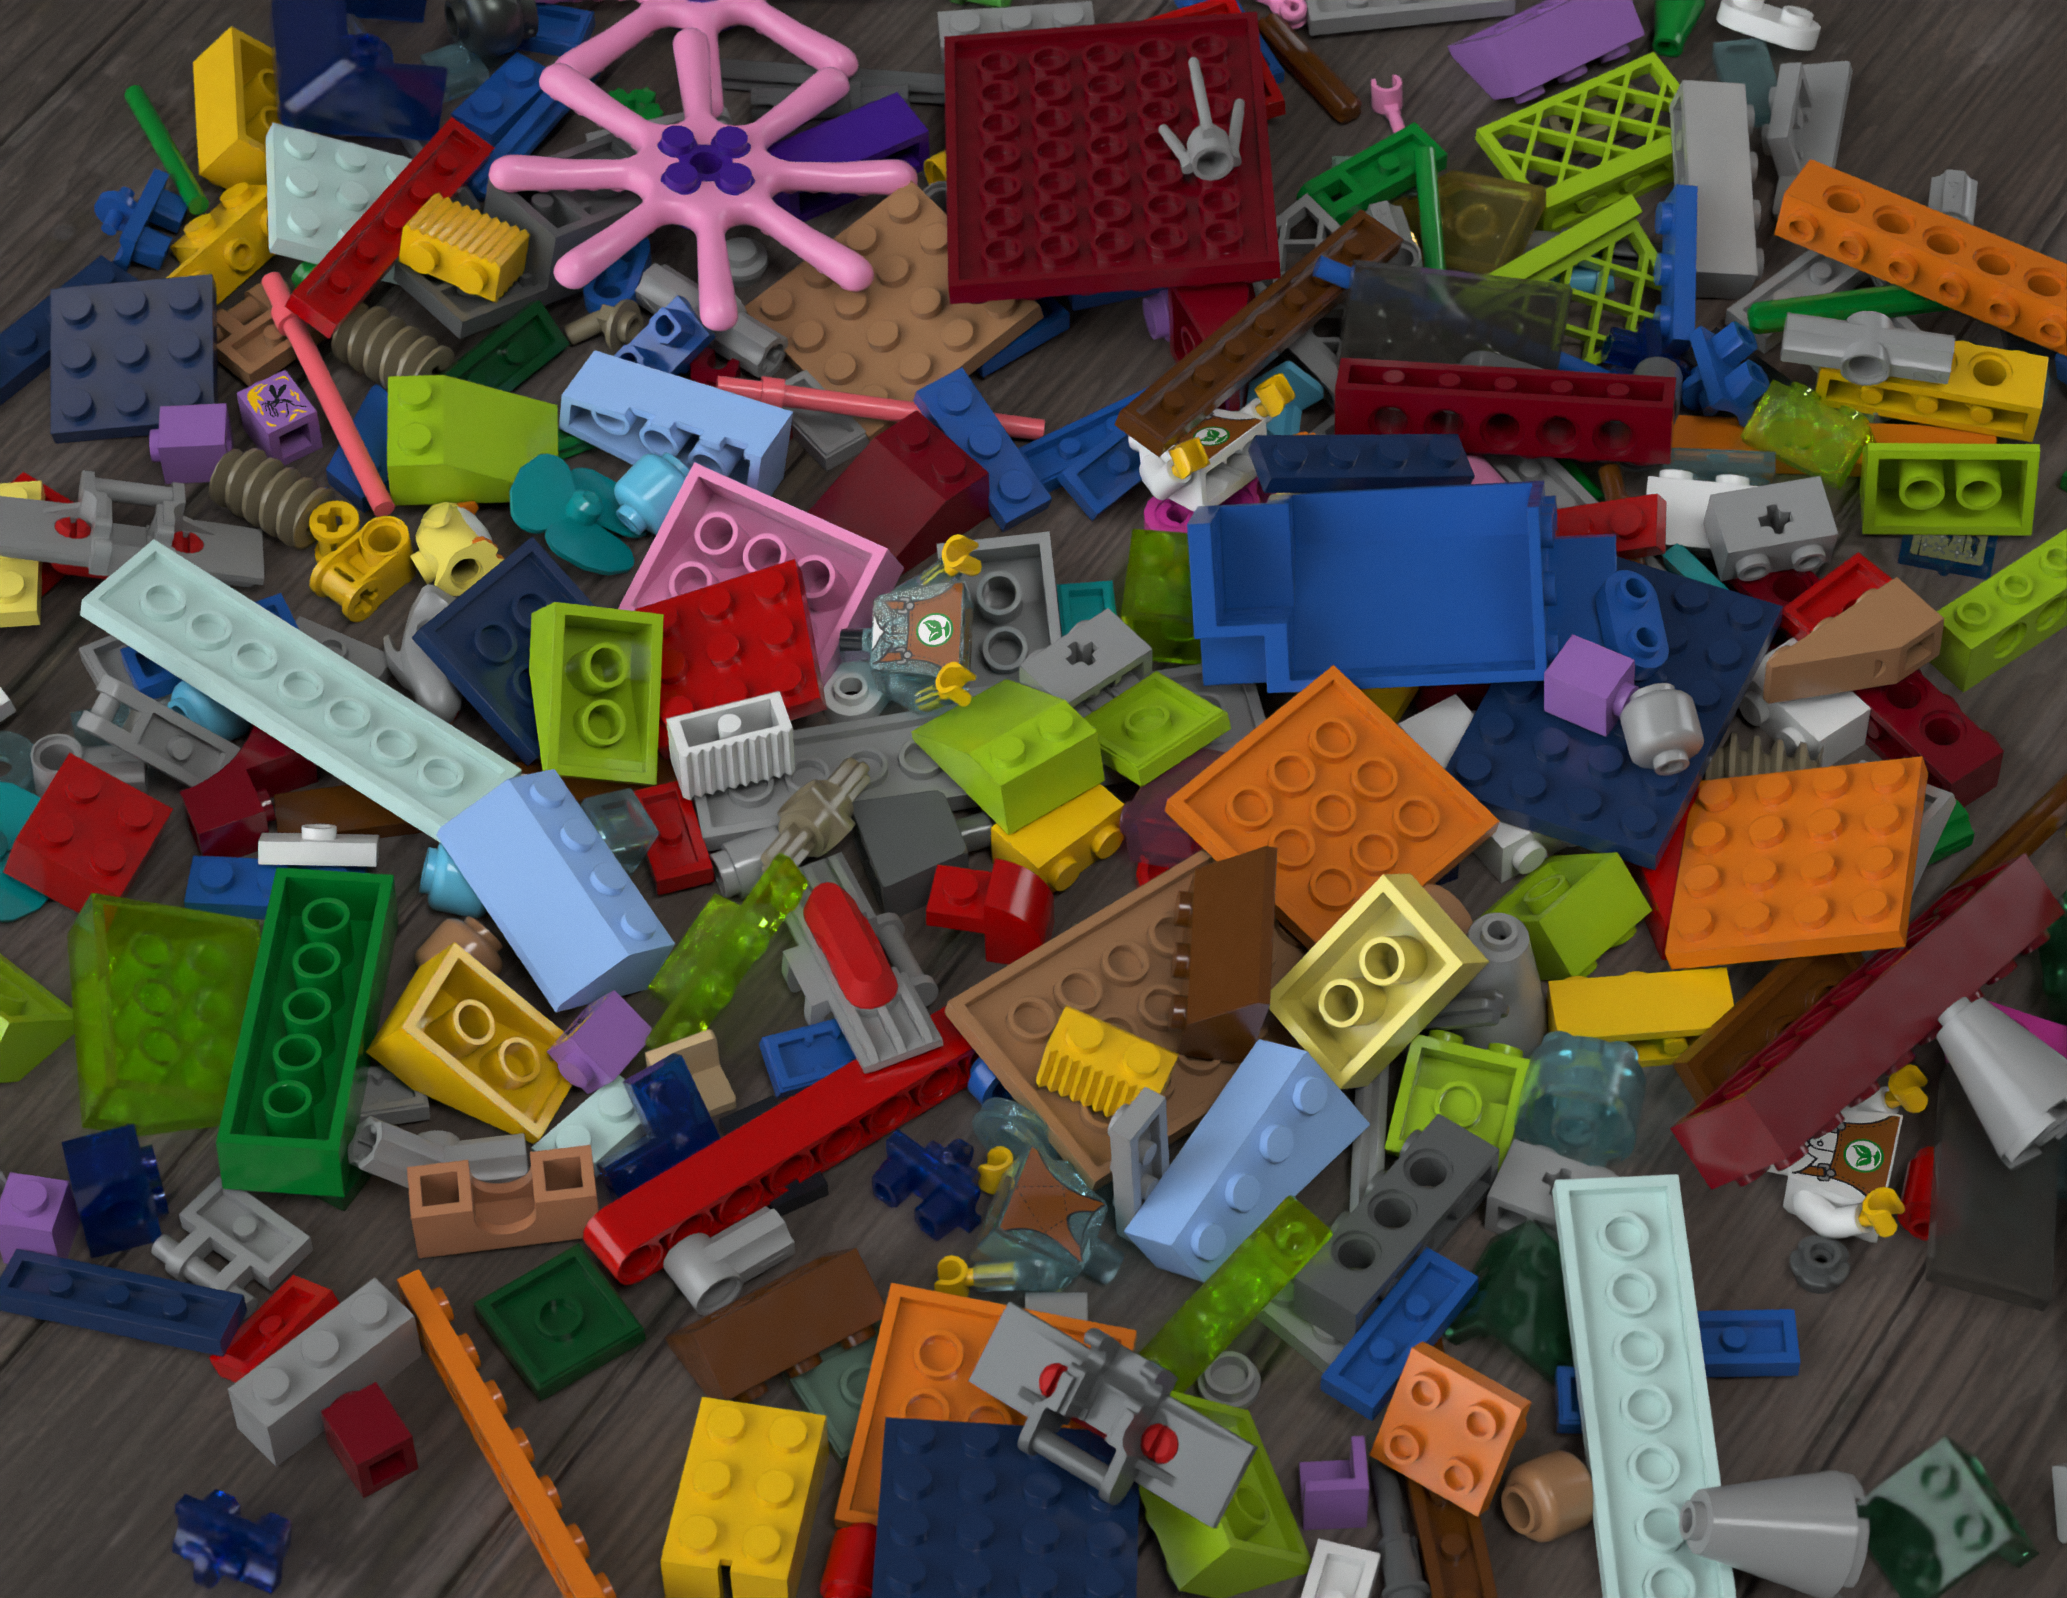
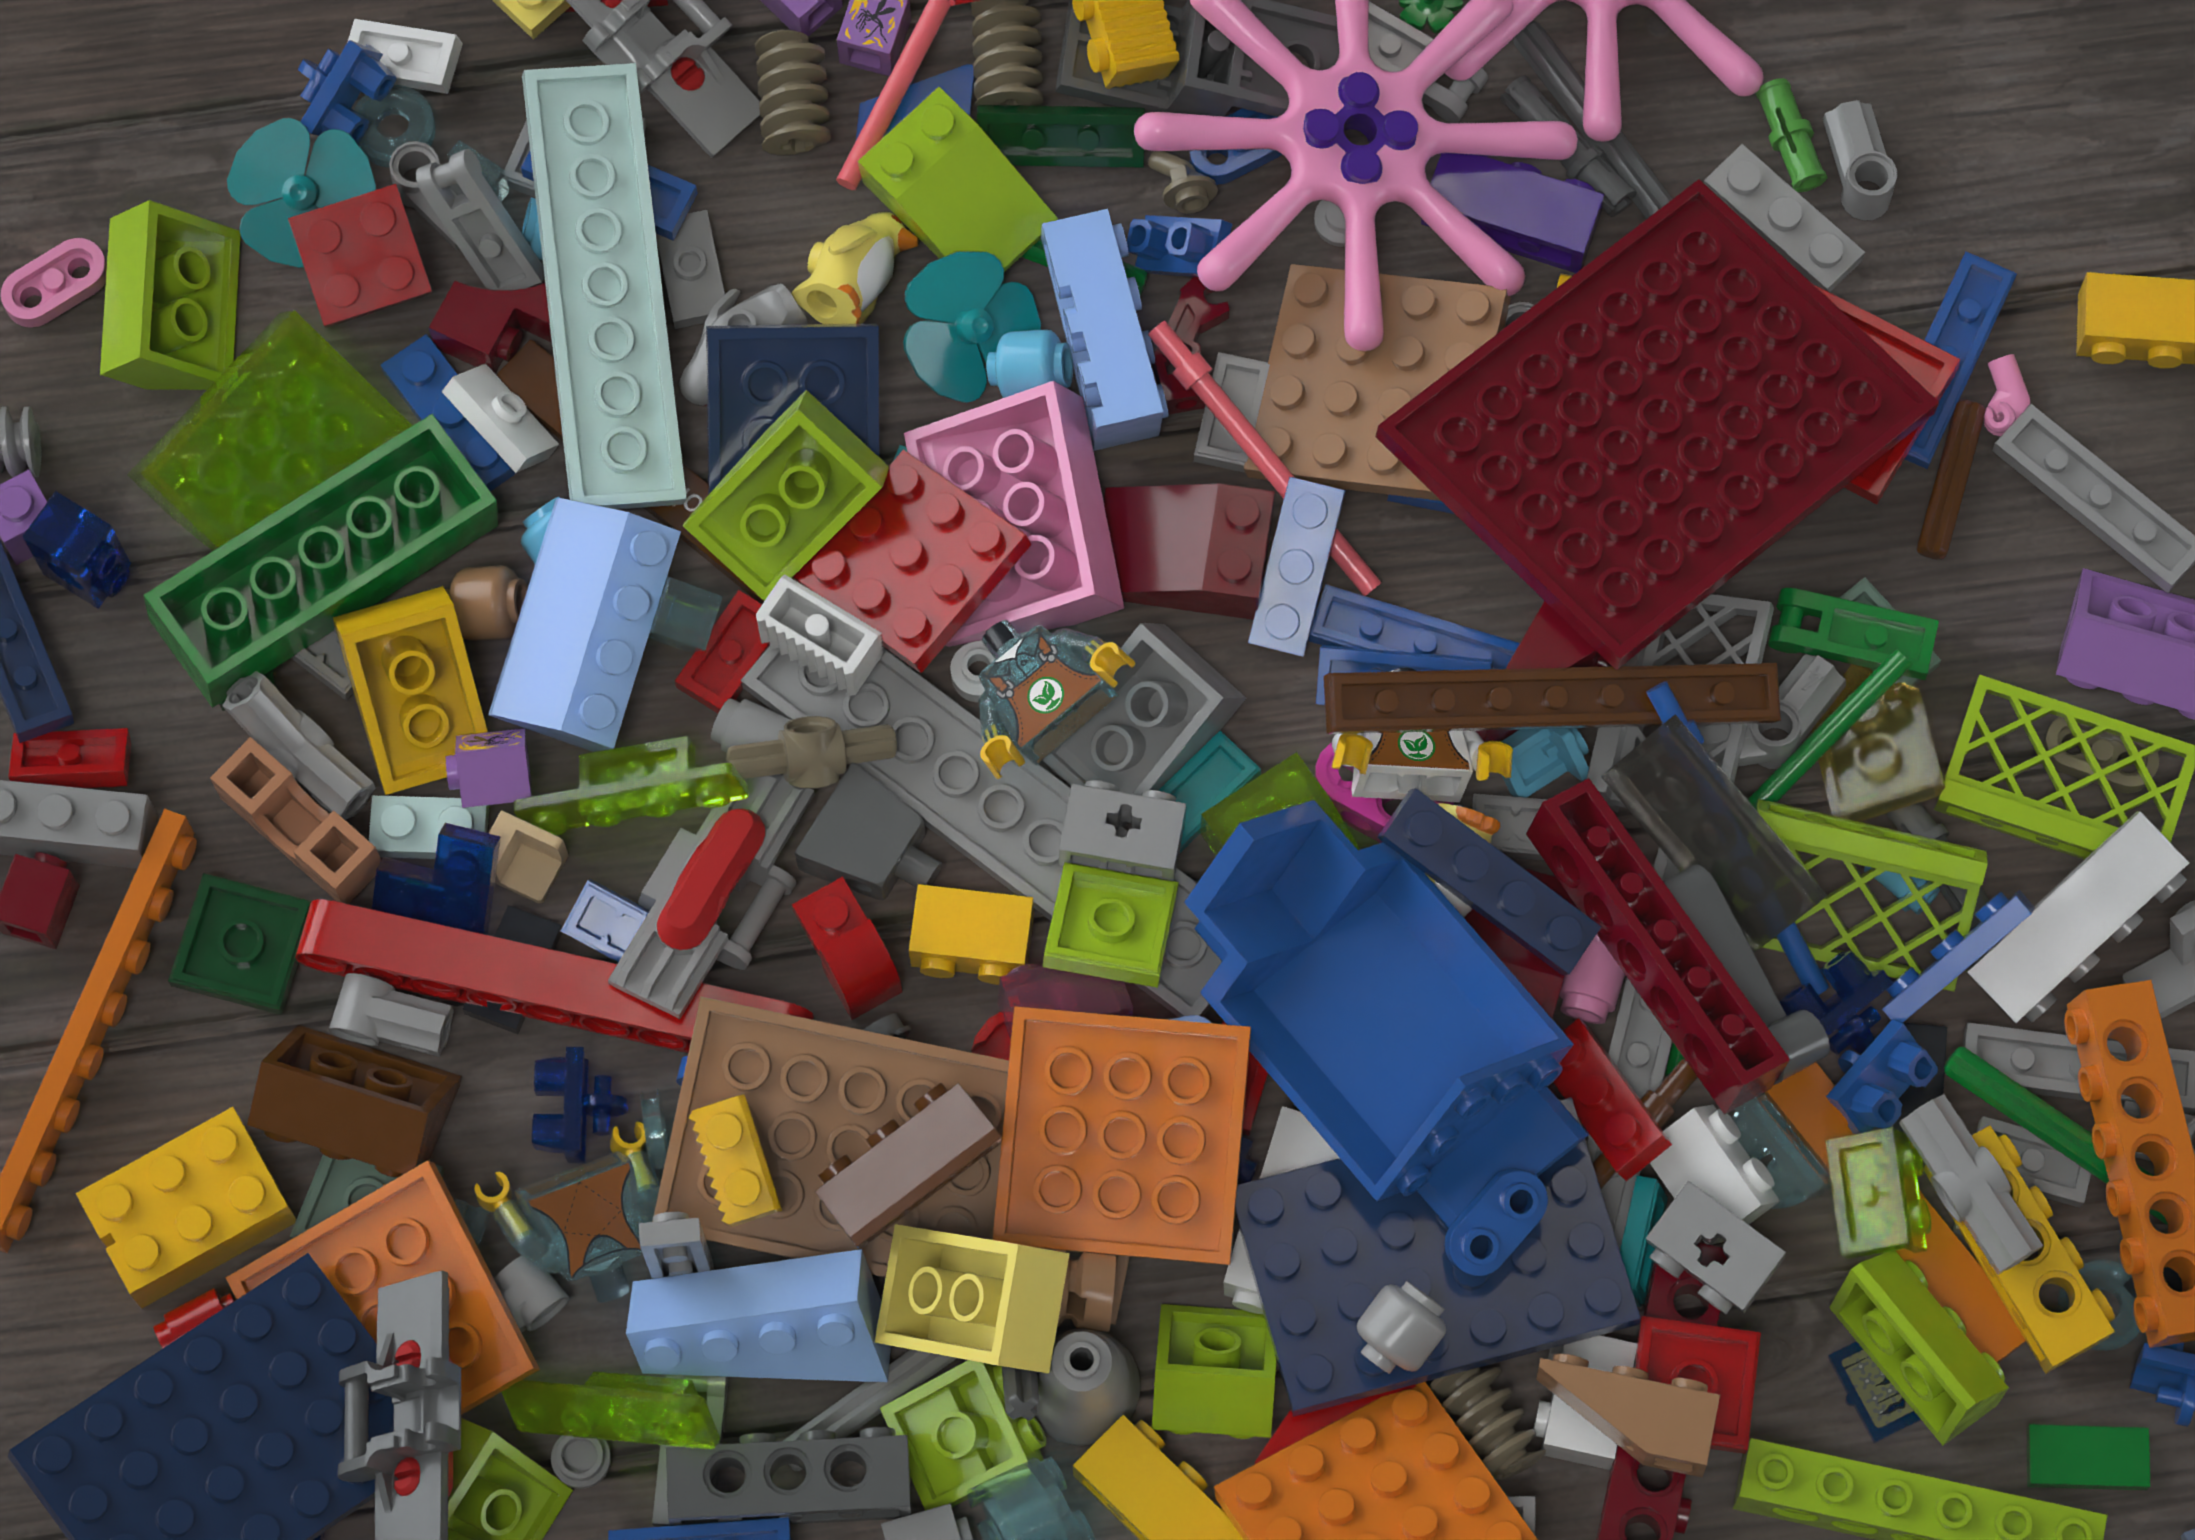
camera: 50 degrees right, 20 degrees up
(243, 1232) = (136, 667): light grey plate -> none
(325, 529) = (805, 157): yellow bush -> none
(368, 568) = (776, 218): yellow piece -> none
(749, 341) = (1258, 290): light grey piece -> none
(1015, 752) = (995, 841): lime slope -> none
(1209, 148) = (1700, 506): light grey plant -> none
(1388, 102) = (1970, 576): bright pink hand -> none
(1589, 685) = (1403, 1238): medium lavender brick -> none

